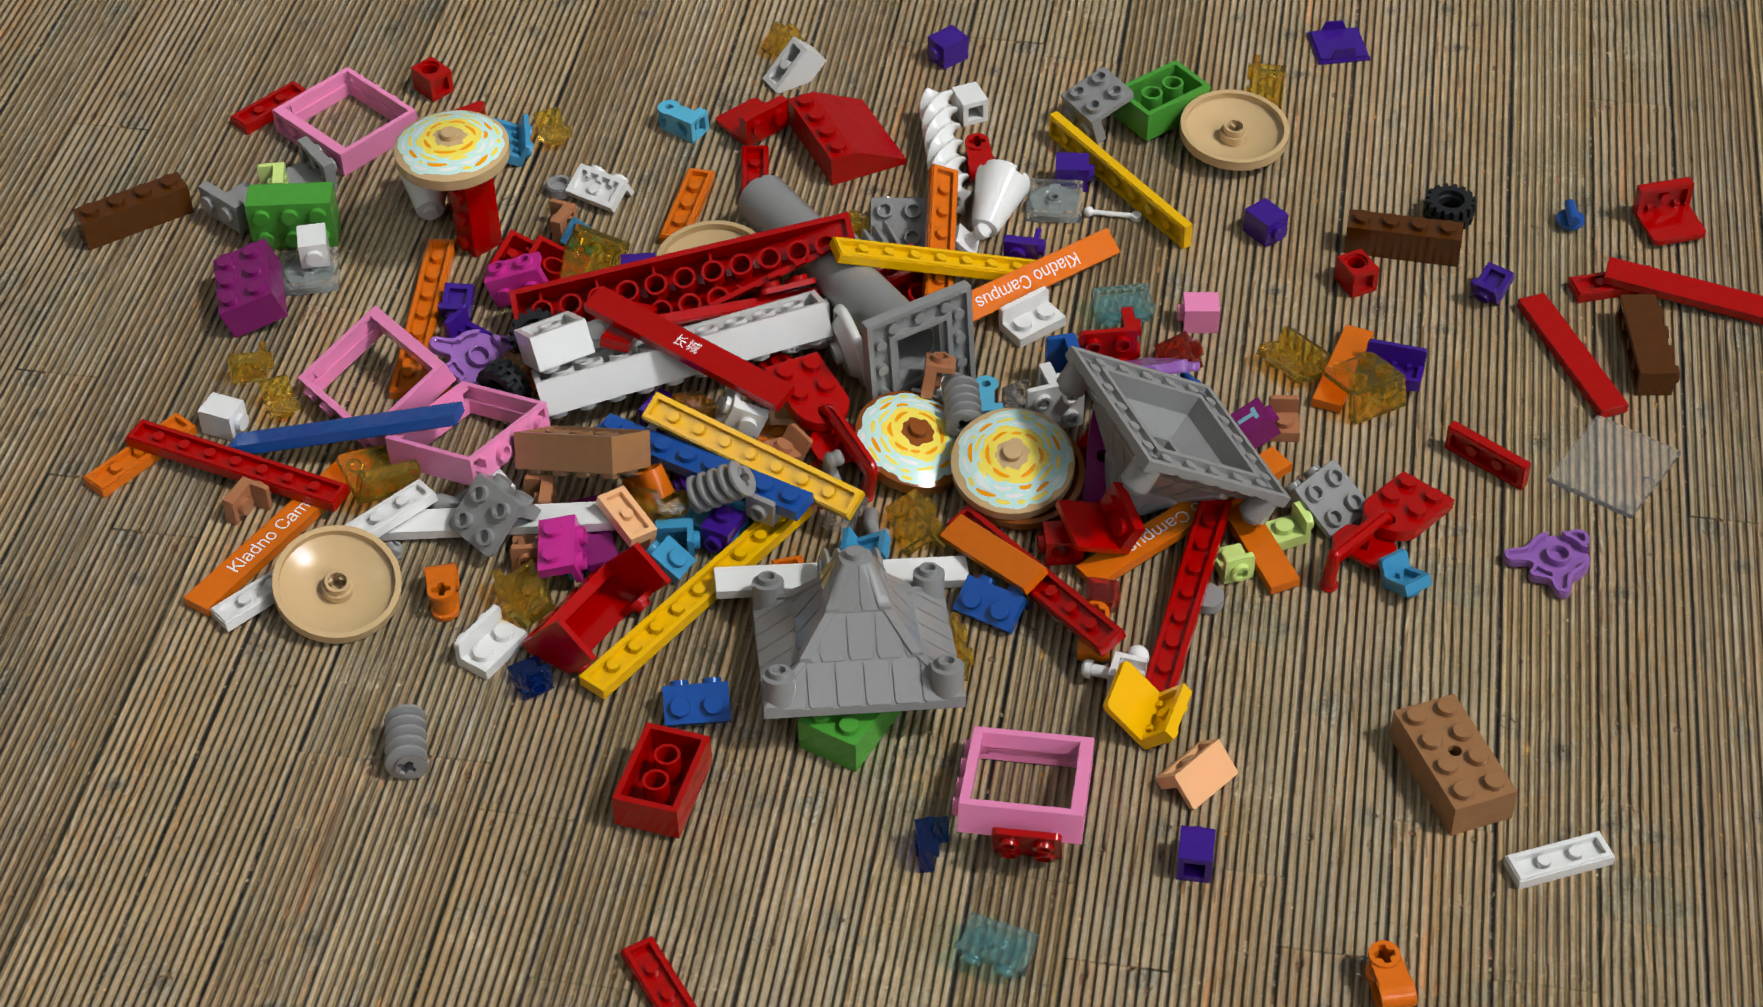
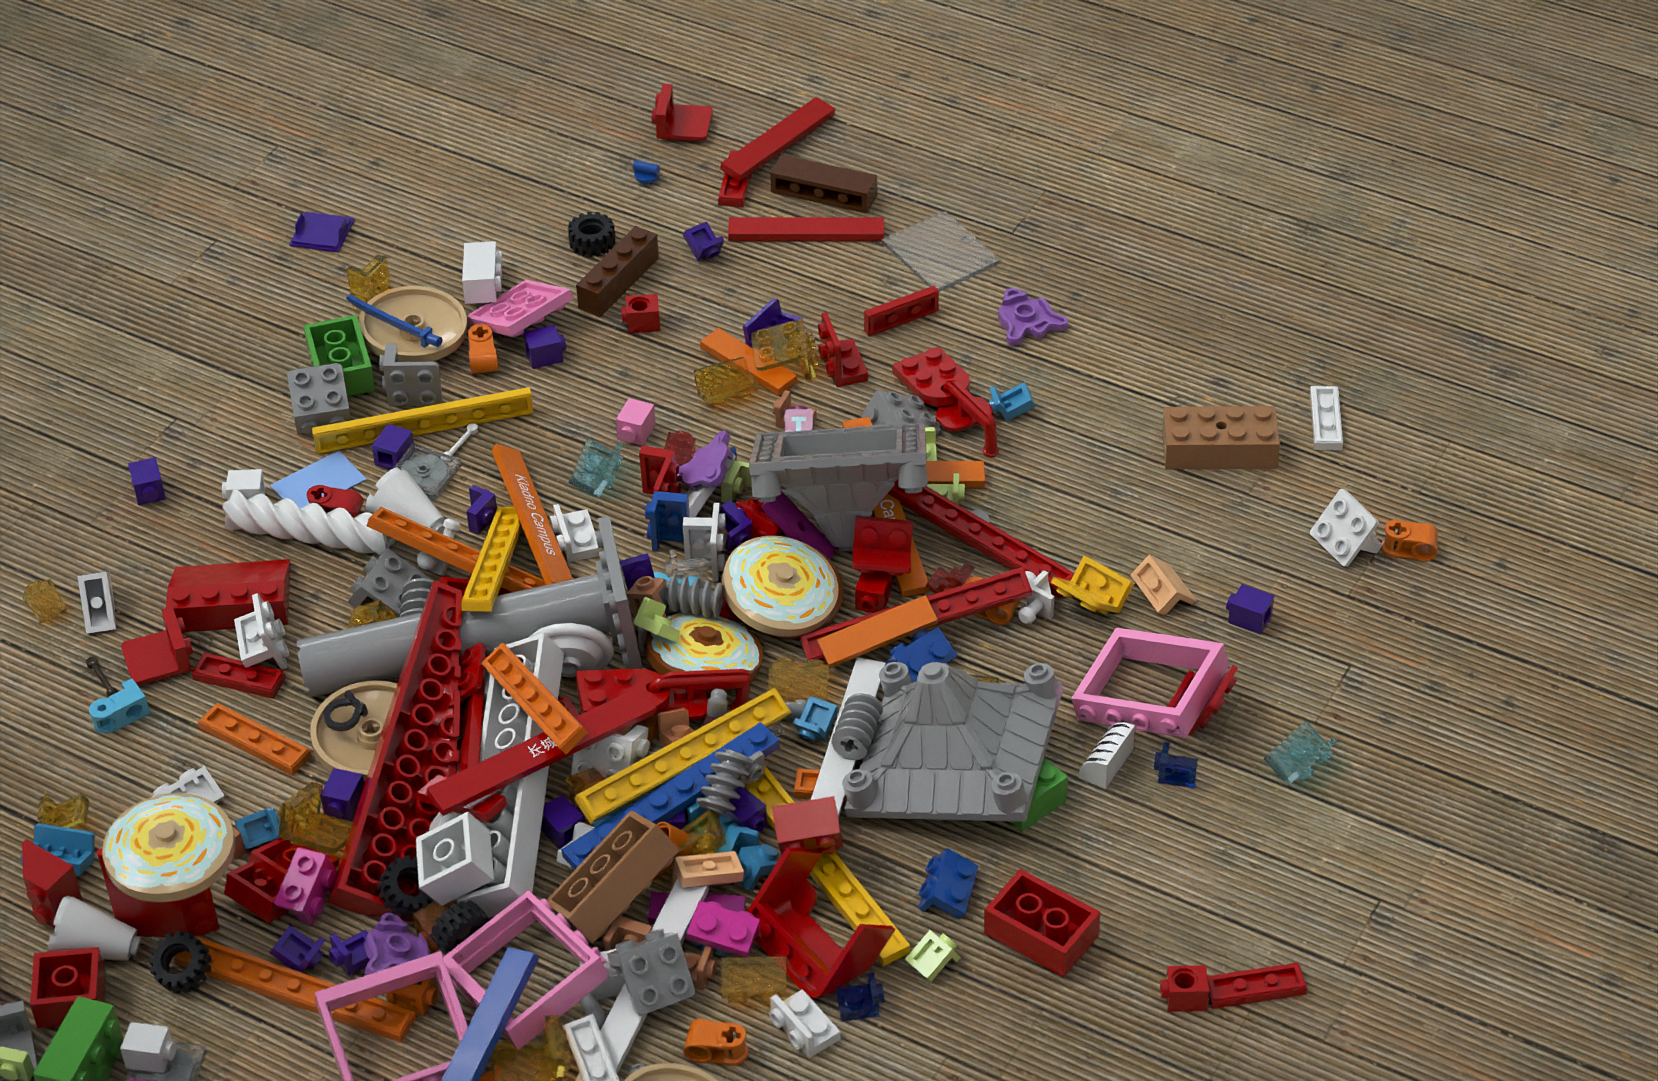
camera: 70 degrees left, 0 degrees up
(367, 188) = (61, 978): none -> red brick
(416, 239) = (167, 950): none -> black tyre
(603, 712) = (932, 954): none -> yellowish green bracket
(625, 920) = (1185, 988): none -> red brick
(688, 562) = (808, 825): none -> red brick
(730, 232) = (360, 710): none -> black piece
(731, 93) = (92, 663): none -> dark brown hinge
(740, 319) = (534, 698): none -> orange tile
(795, 163) = (261, 635): none -> white bracket
(901, 382) = (651, 619): none -> yellowish green bracket
(920, 785) = (1108, 755): none -> white brick
(967, 357) = (635, 568): none -> dark purple bracket
(1019, 147) = (330, 471): none -> light blue sticker
(1074, 417) = (737, 525): none -> dark purple bracket
(1154, 143) = (409, 381): none -> light grey bracket
(1211, 135) = (425, 335): none -> blue sword
(1232, 187) = (482, 350): none -> orange piece
(1299, 187) = (520, 307): none -> bright pink plate
(1334, 148) = (481, 272): none -> white brick
(1368, 913) = (1346, 528): none -> white bracket
(1381, 426) = (841, 357): none -> red bracket

